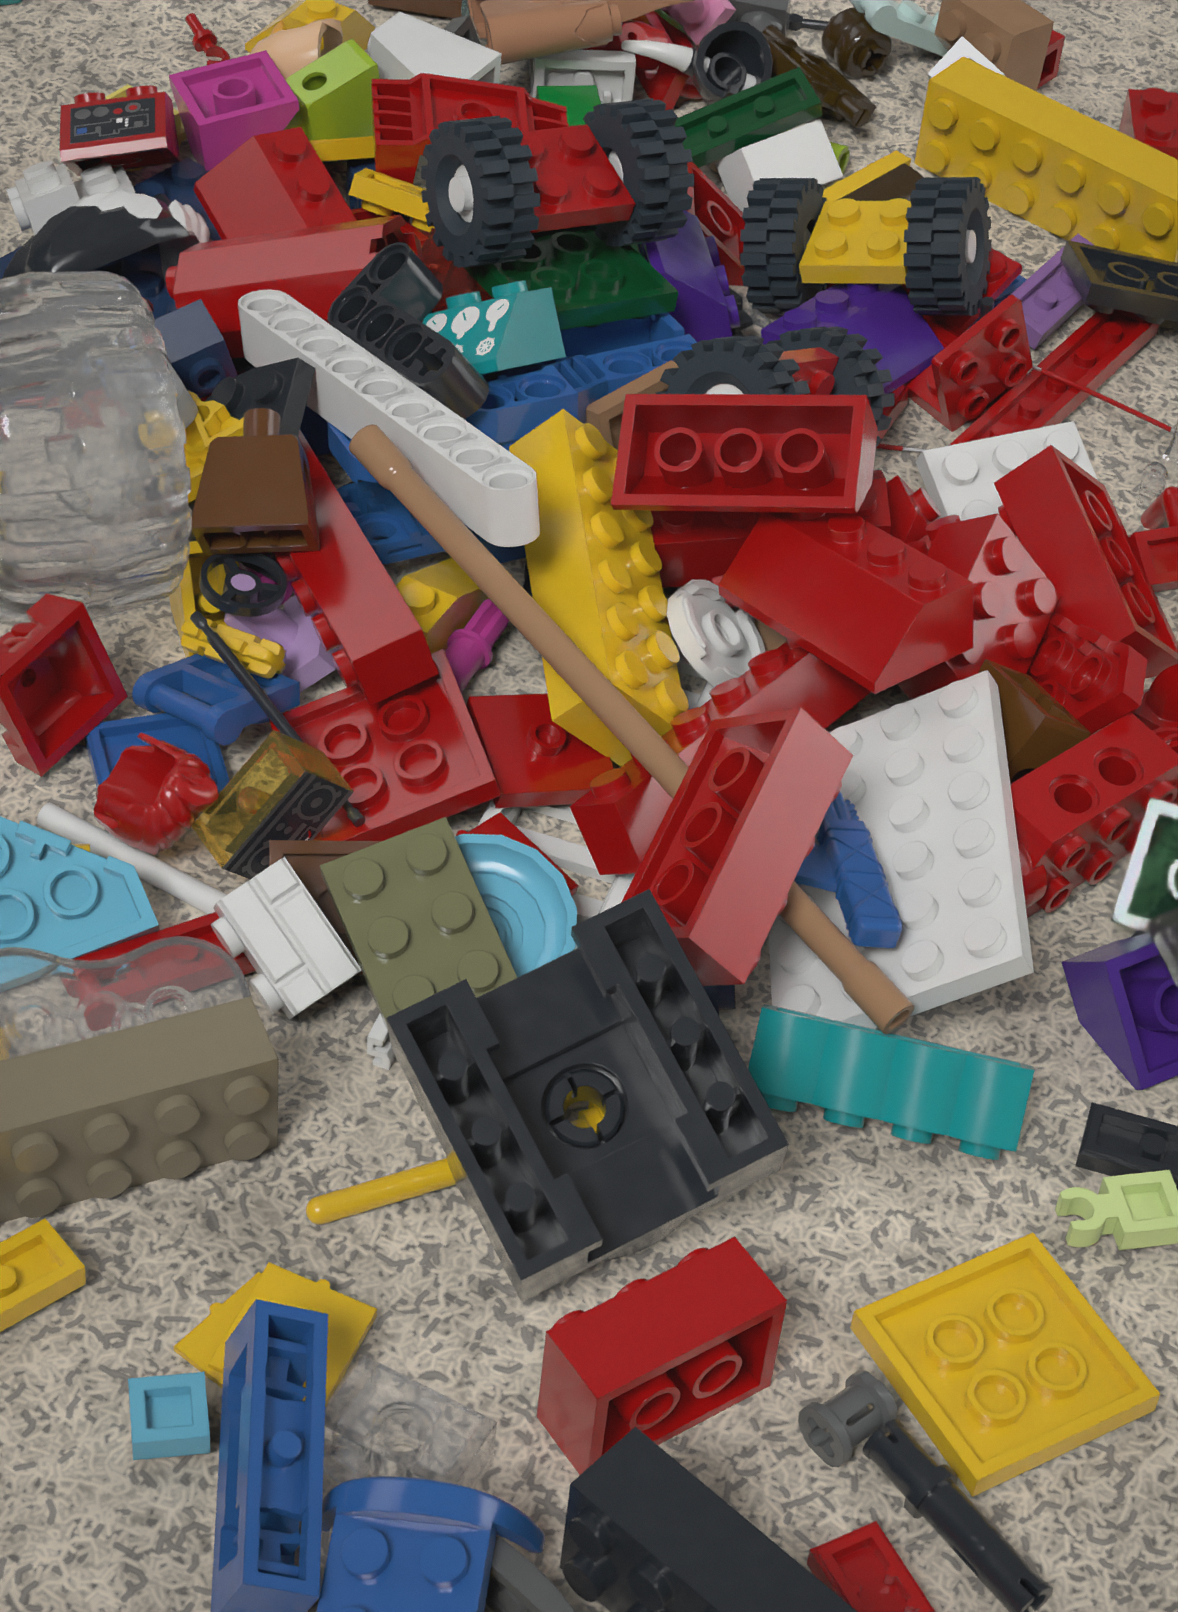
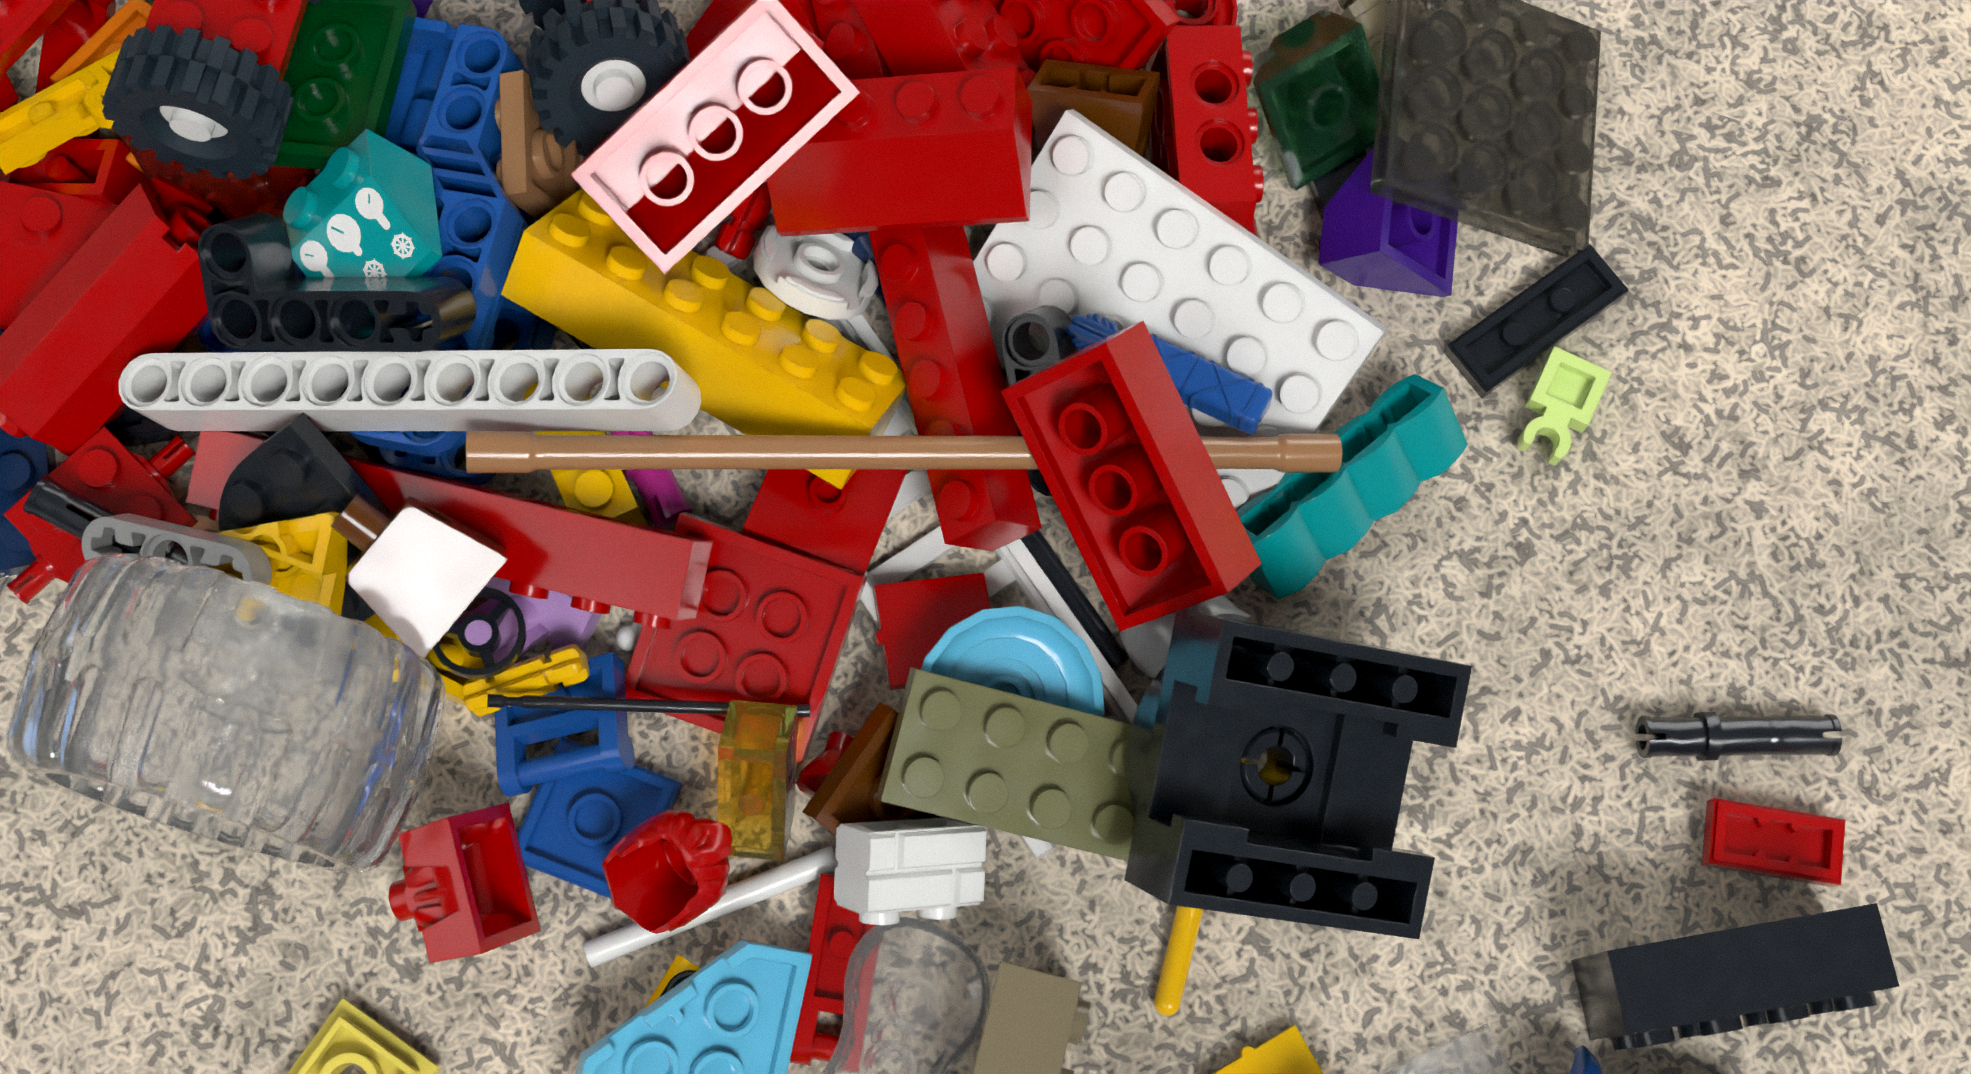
camera: 50 degrees left, 30 degrees up
(195, 348) = (141, 479): dark blue brick -> none
(661, 1353) = (1507, 860): red brick -> none
(847, 1418) = (1614, 748): dark grey bush -> none
(1003, 1363) = (1632, 598): yellow plate -> none

